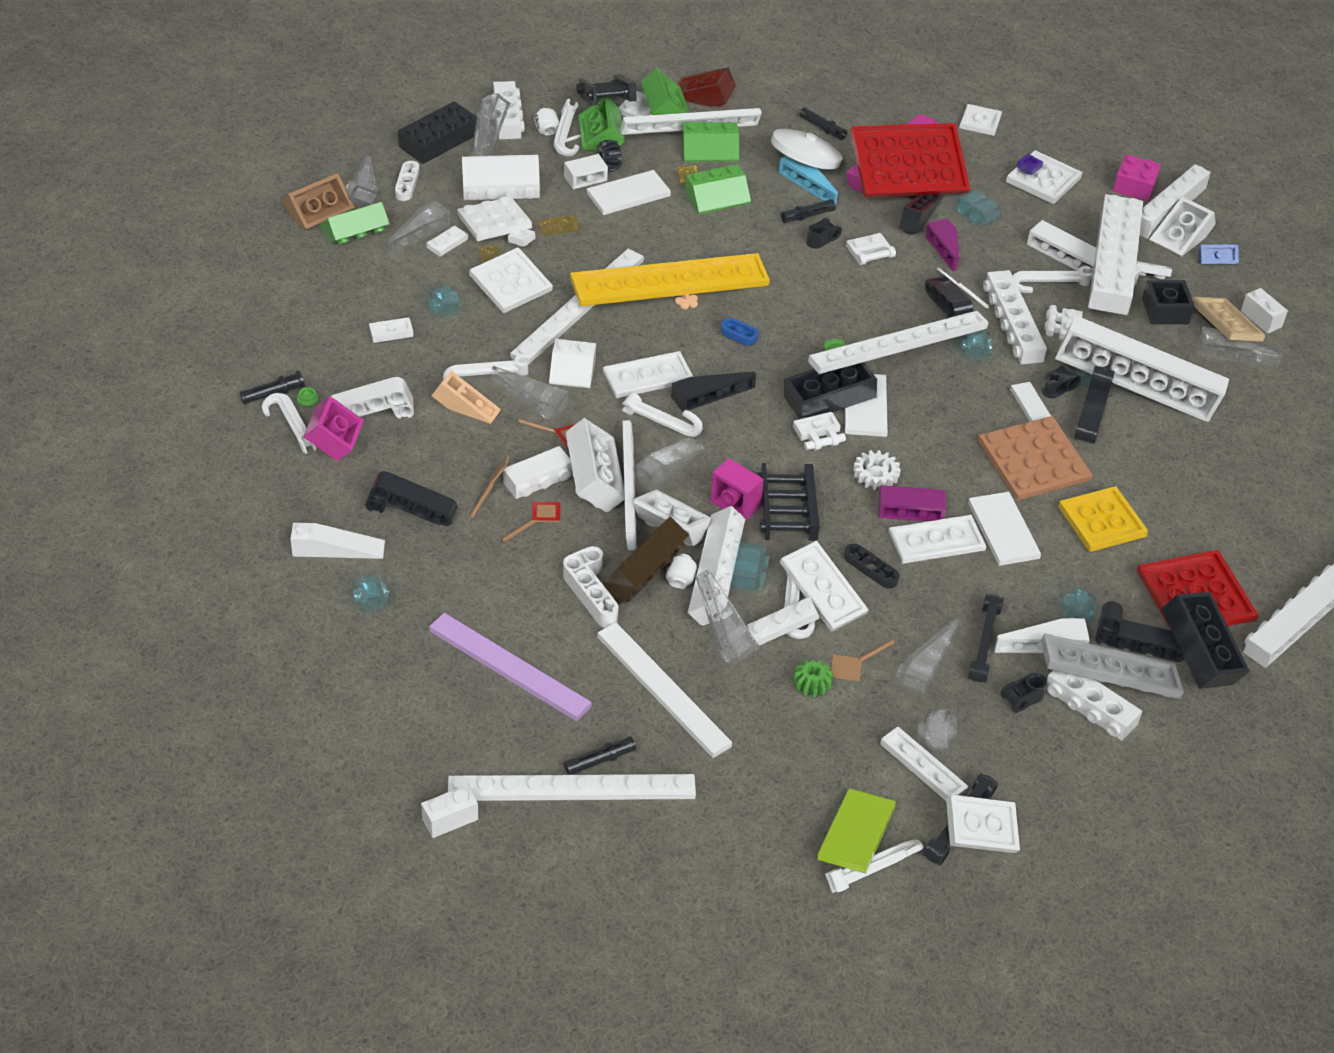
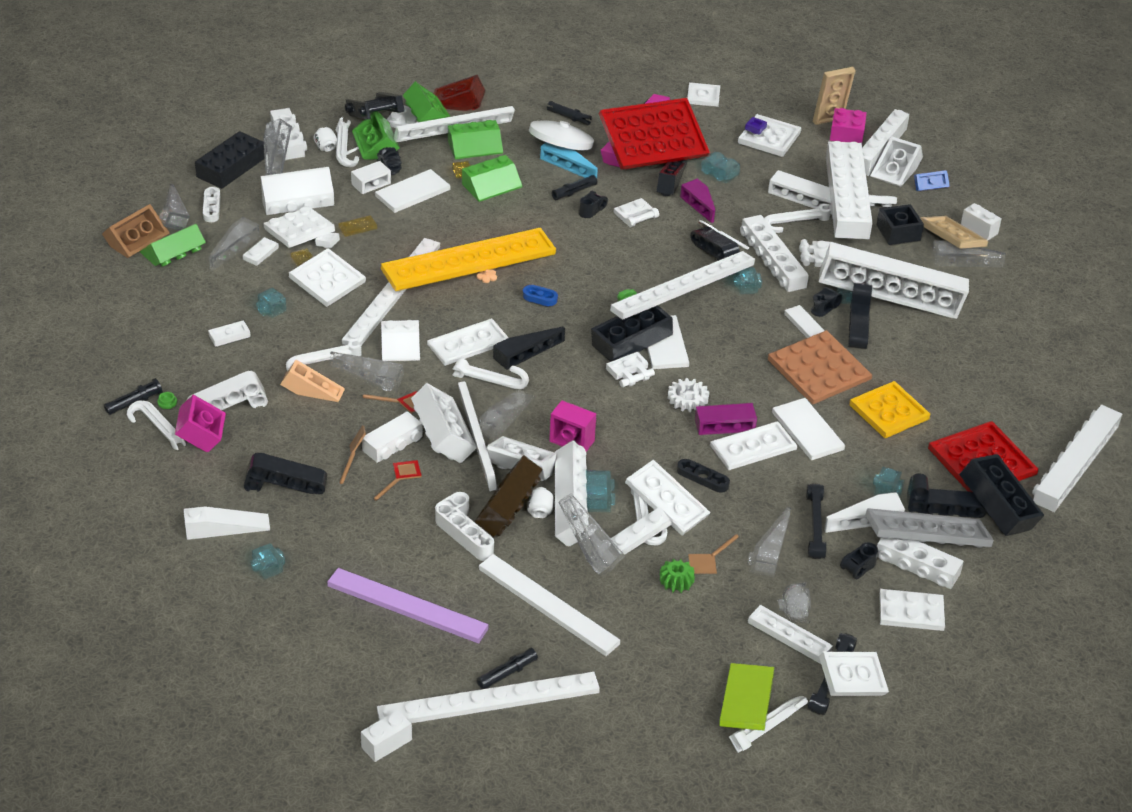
camera: 10 degrees left, 5 degrees down
(806, 494) = (633, 423): black fence -> none
(1070, 758) = (912, 609): none -> white plate
(1125, 138) = (833, 94): none -> tan tile

